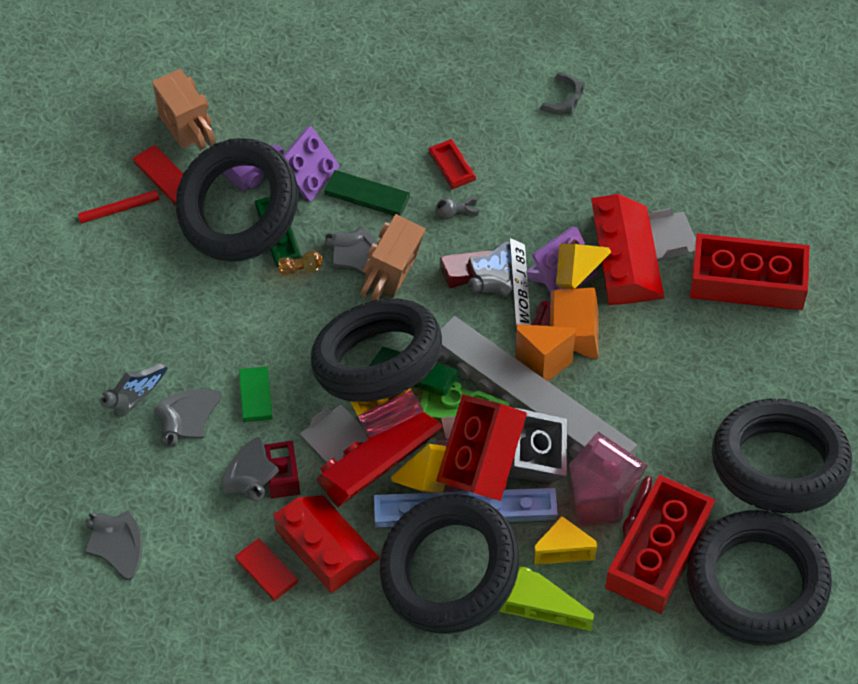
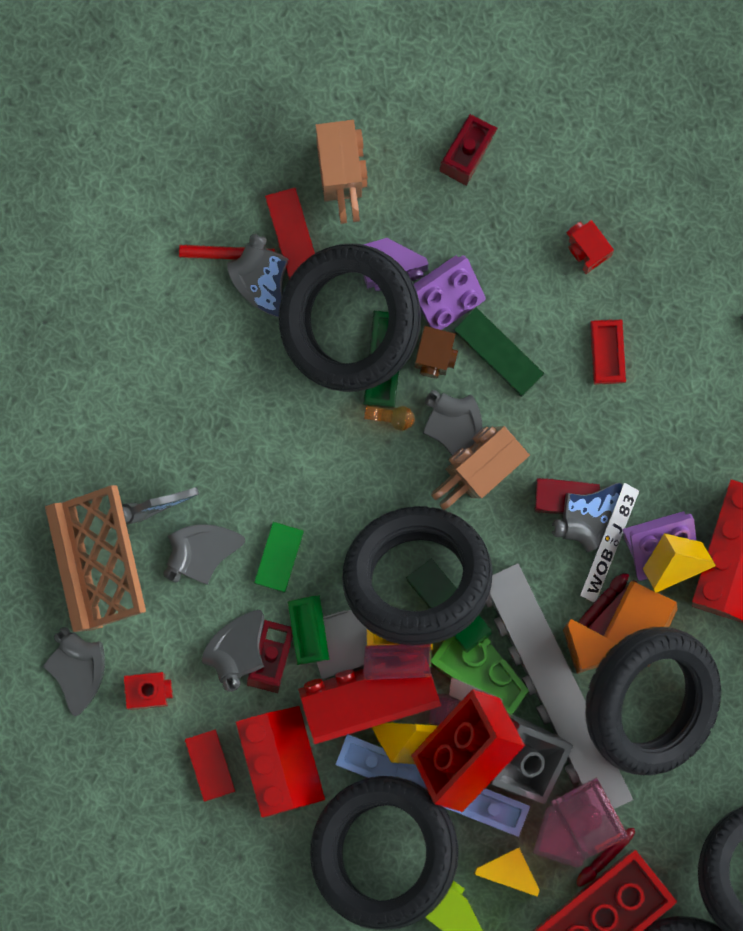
camera: 20 degrees right, 25 degrees up
(86, 463) = (76, 565): none -> nougat fence
(152, 208) = (259, 275): none -> dark grey arm
(185, 530) = (147, 691): none -> red brick
(278, 79) = (467, 149): none -> dark red slope
(305, 433) = (308, 630): none -> green tile
(317, 207) = (436, 352): none -> reddish brown brick
(402, 100) = (589, 245): none -> red brick
(447, 208) = (581, 412): dark grey arm -> none
(584, 380) = (610, 686): none -> black tyre

